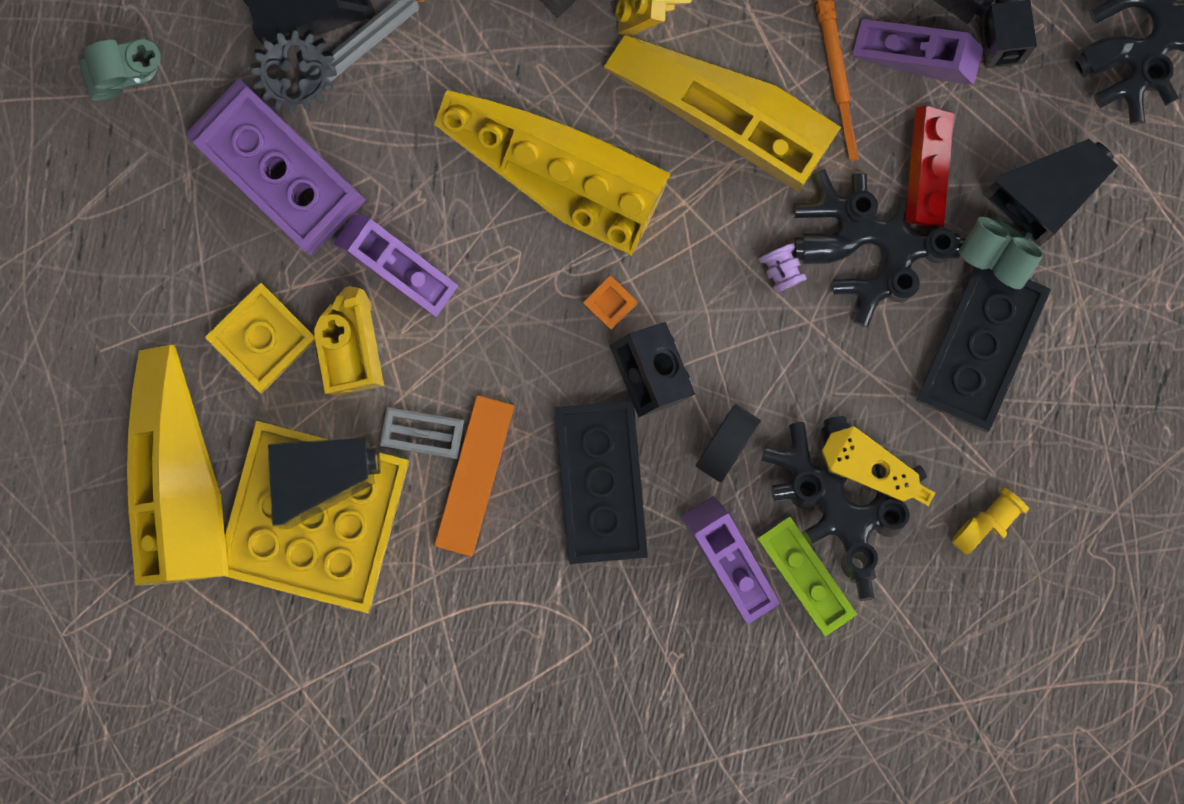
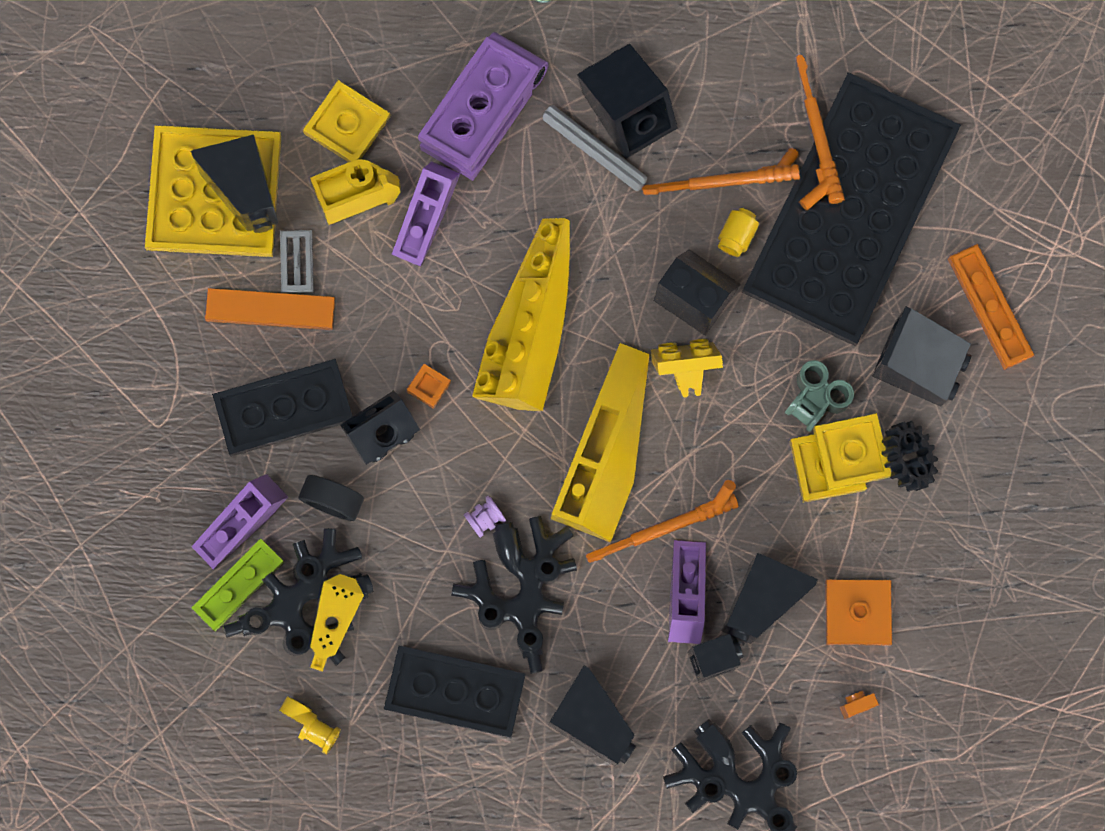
camera: 75 degrees right, 5 degrees down
(170, 479) = (220, 75): yellow wedge -> none
(277, 84) = (569, 86): black gear -> none
(929, 167) = (592, 619): red plate -> none
(1001, 249) = (534, 687): sand green piece -> none

